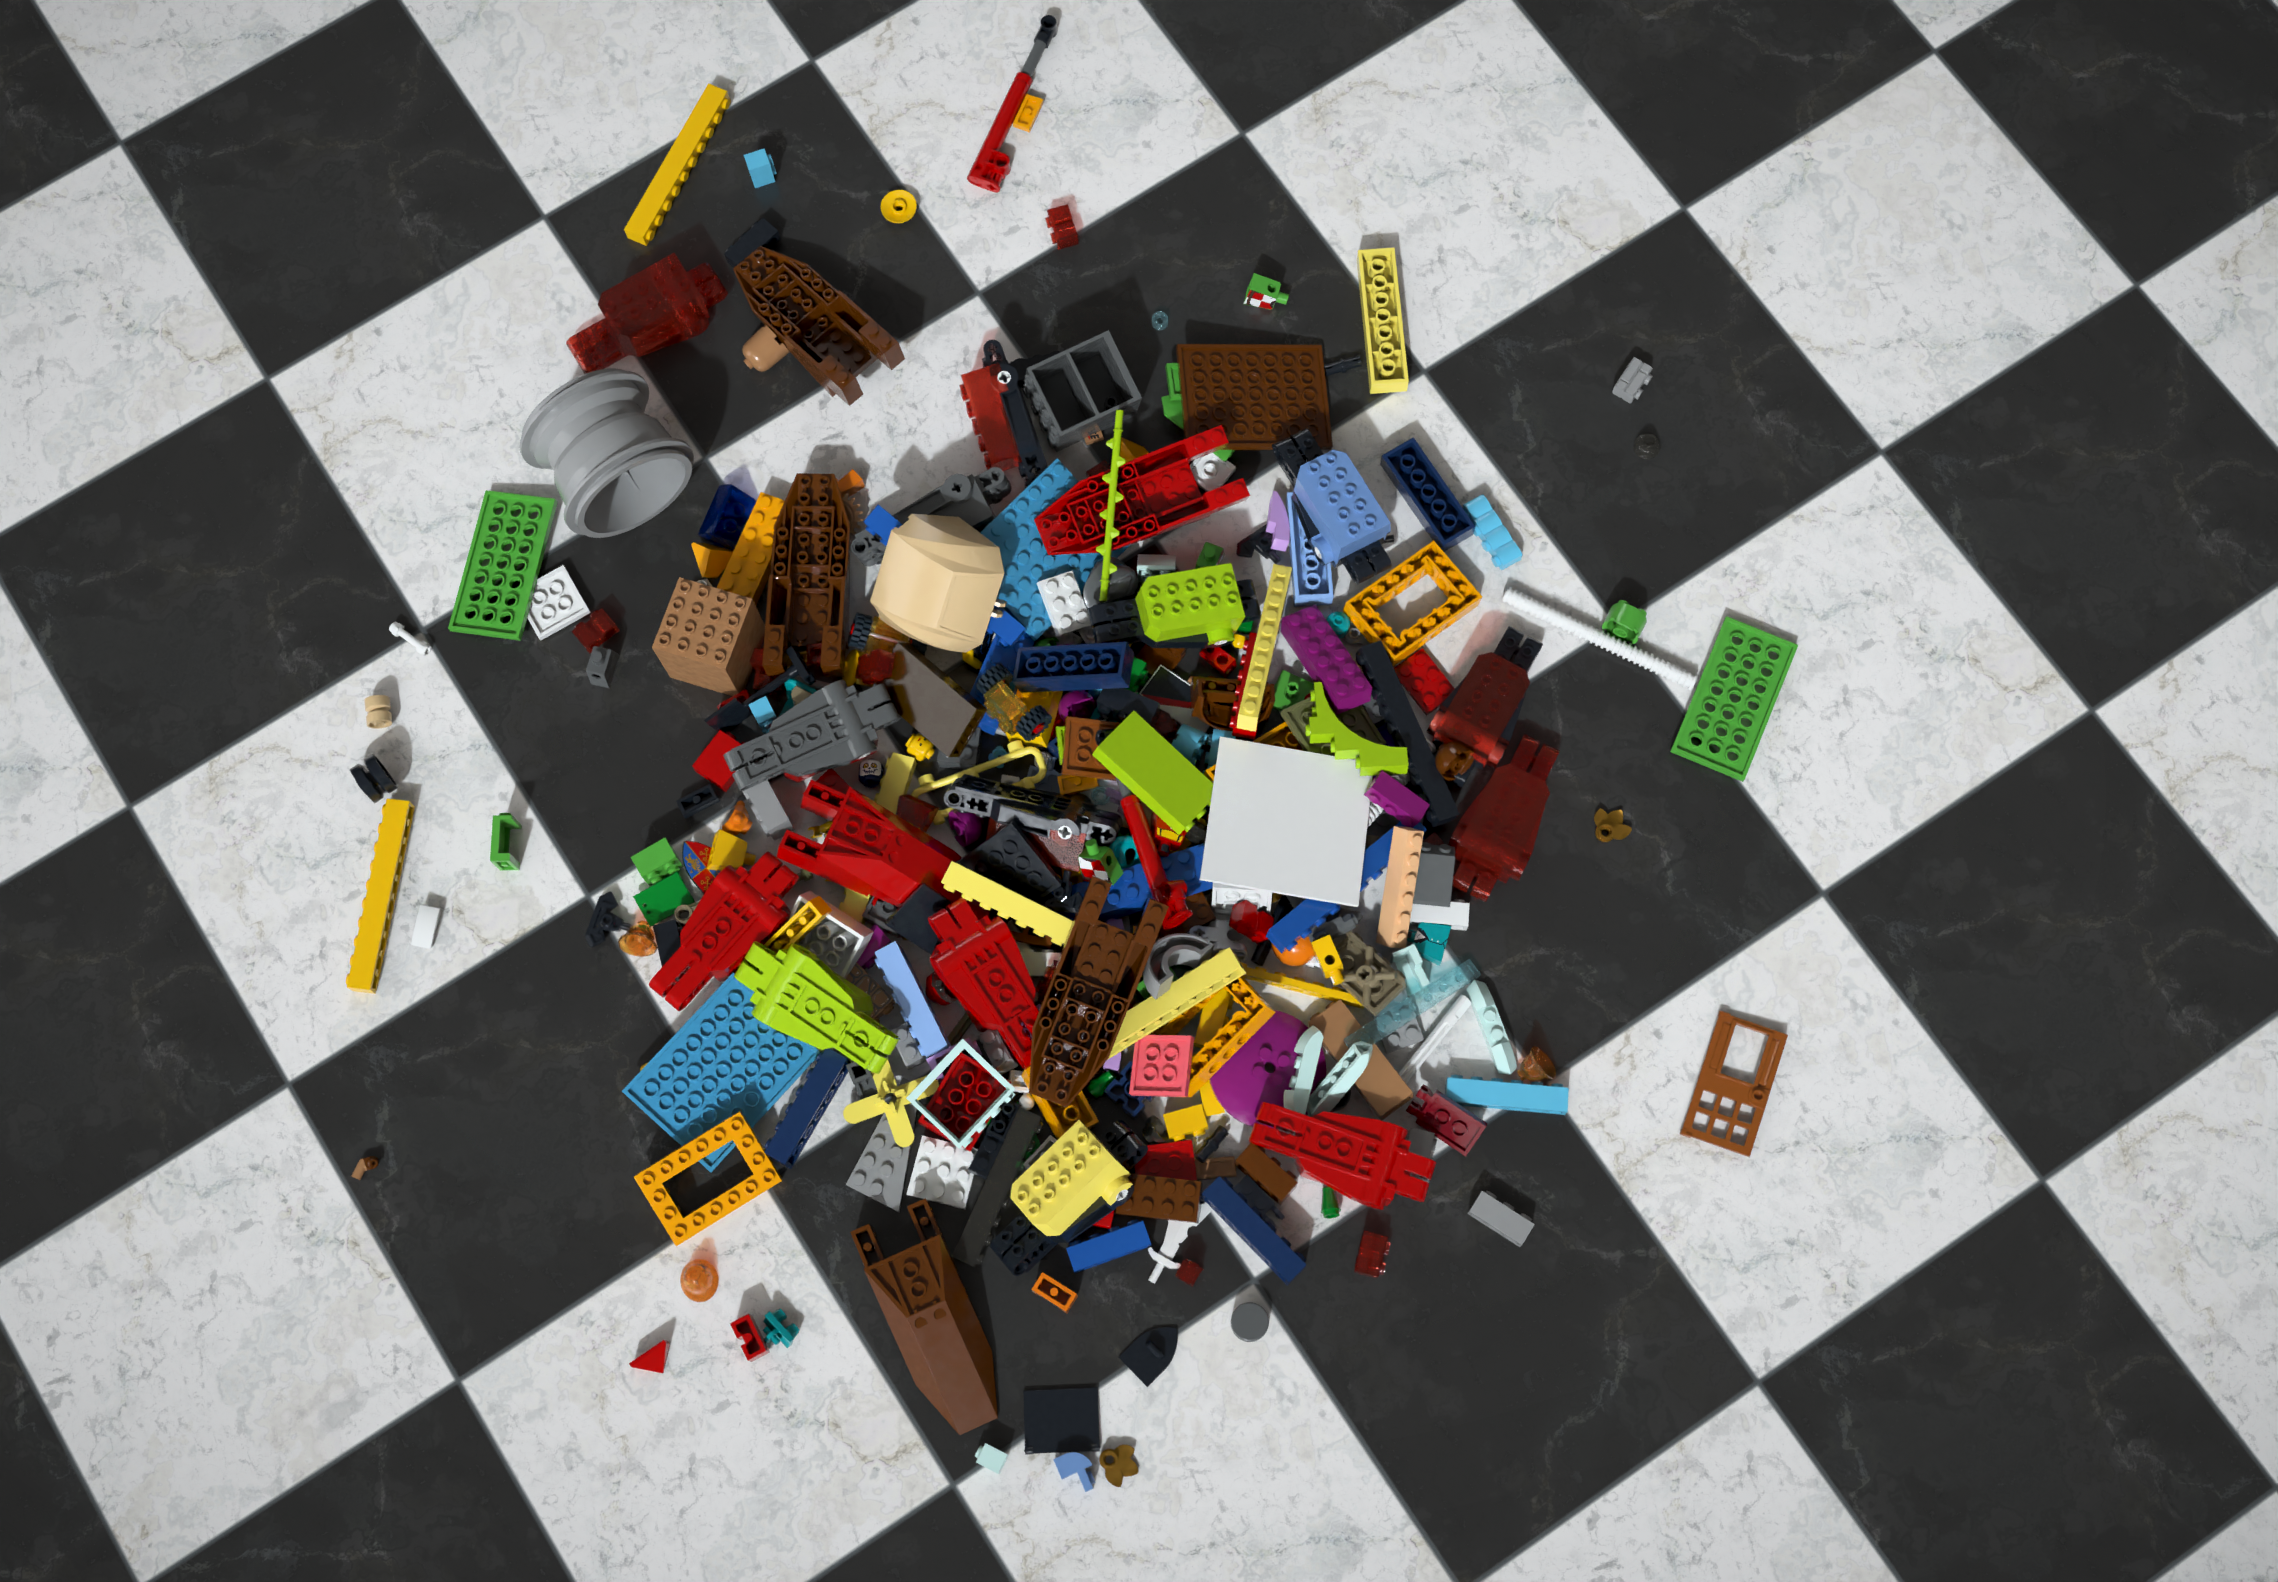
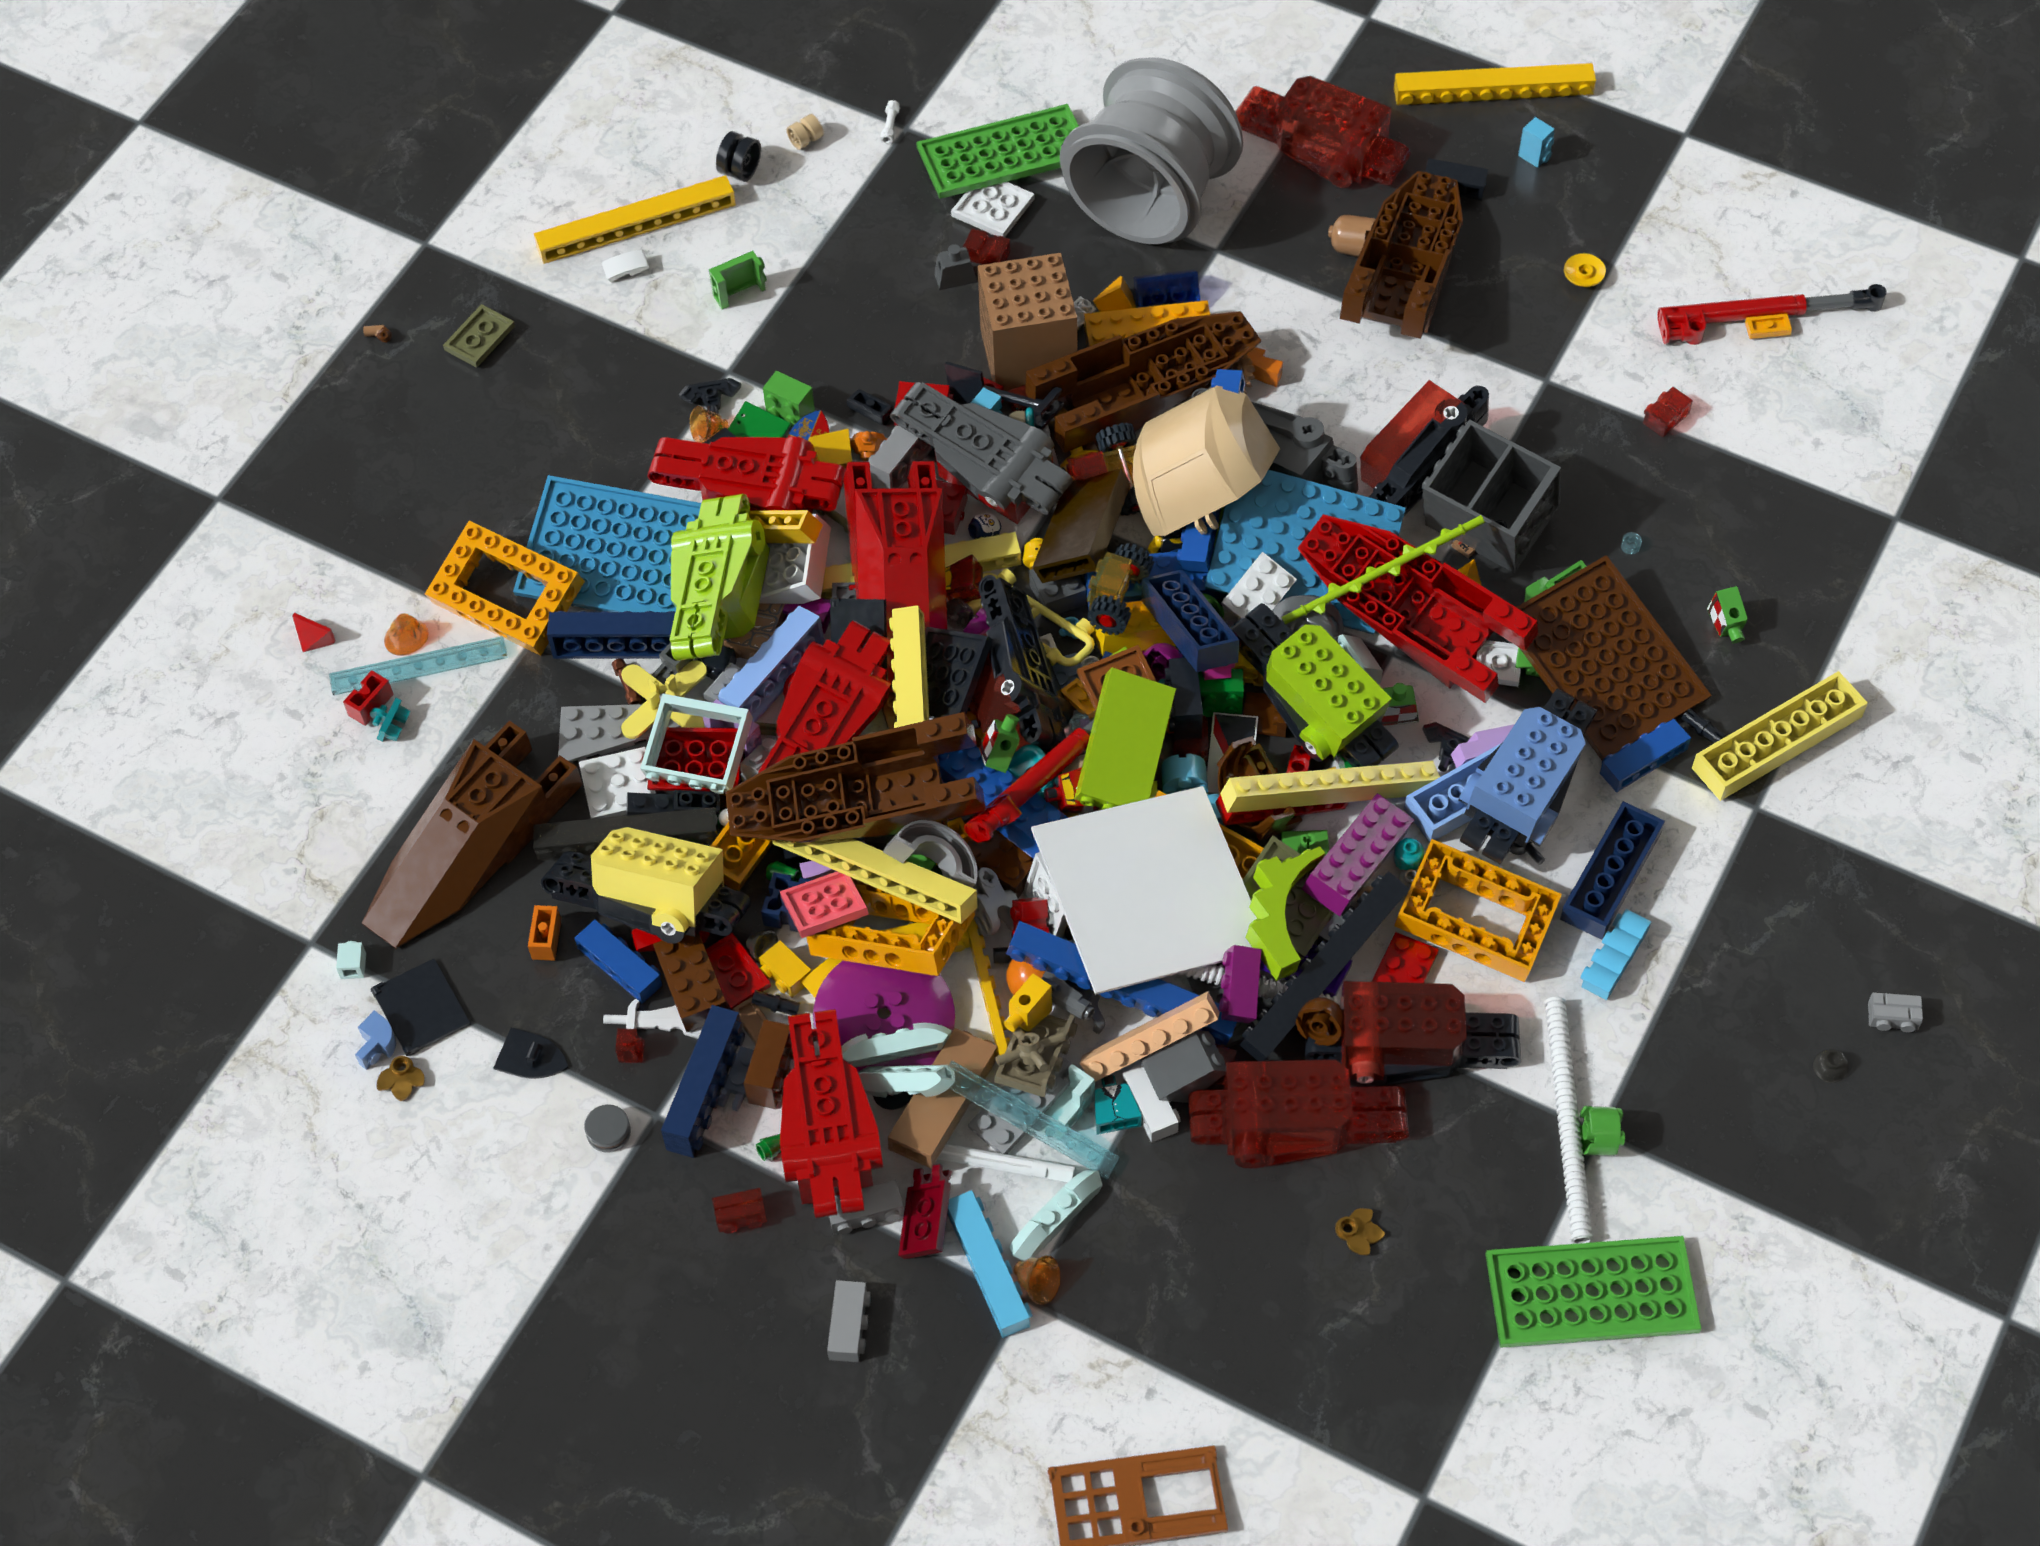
camera: 60 degrees right, 15 degrees down
(424, 1082) = (479, 335): none -> olive plate
(735, 1283) = (421, 664): none -> clear light blue tile
(834, 1120) = (631, 696): none -> copper bar
(942, 832) = (958, 613): none -> clear smoke head
(1344, 417) = (1644, 755): none -> blue brick

